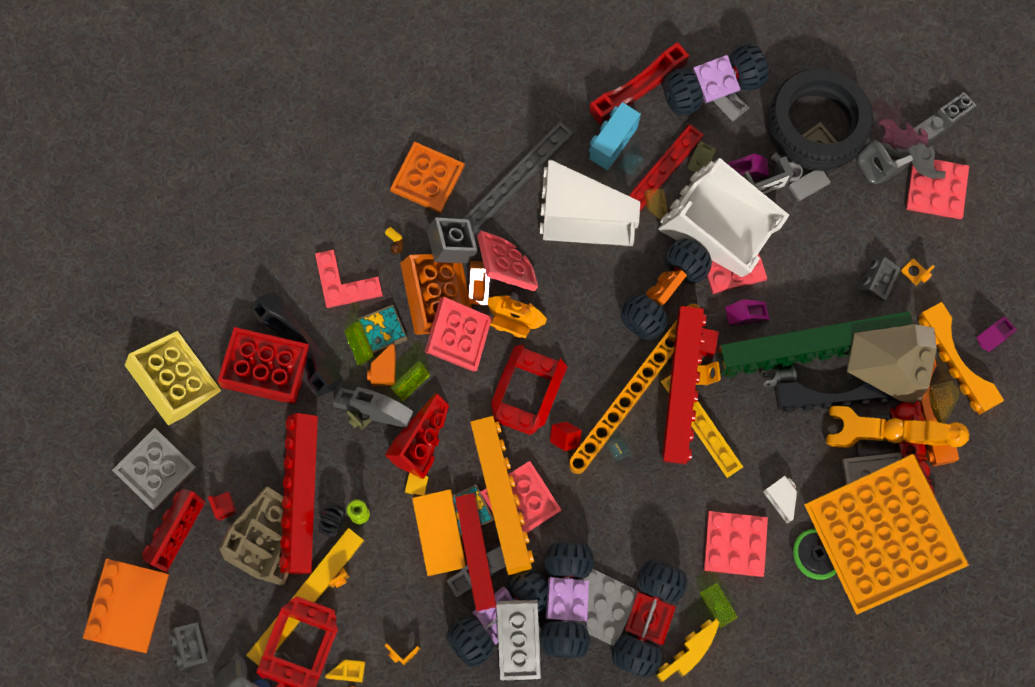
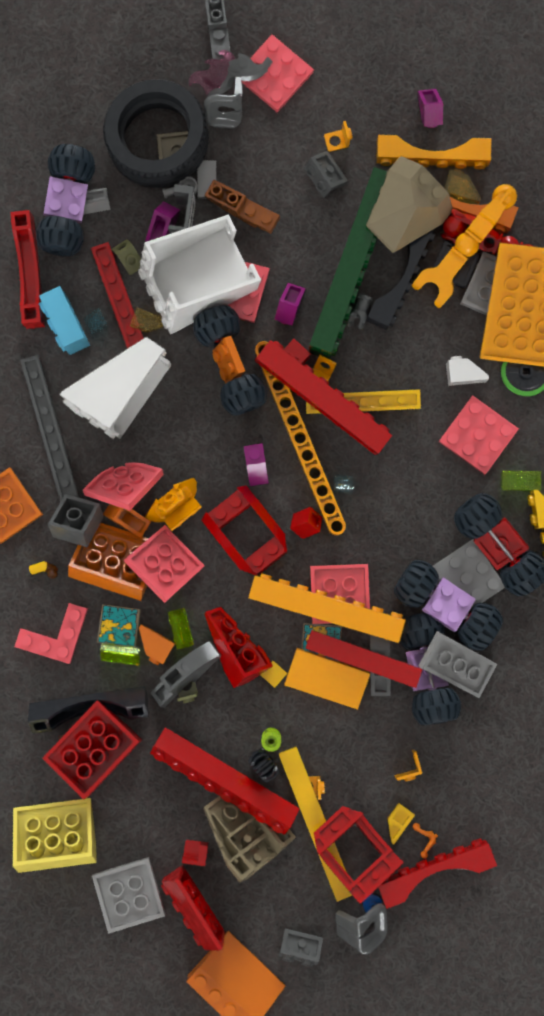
camera: 55 degrees left, 10 degrees up
(590, 363) = (256, 464): none -> magenta slope
(804, 224) = (241, 207): none -> dark orange slope

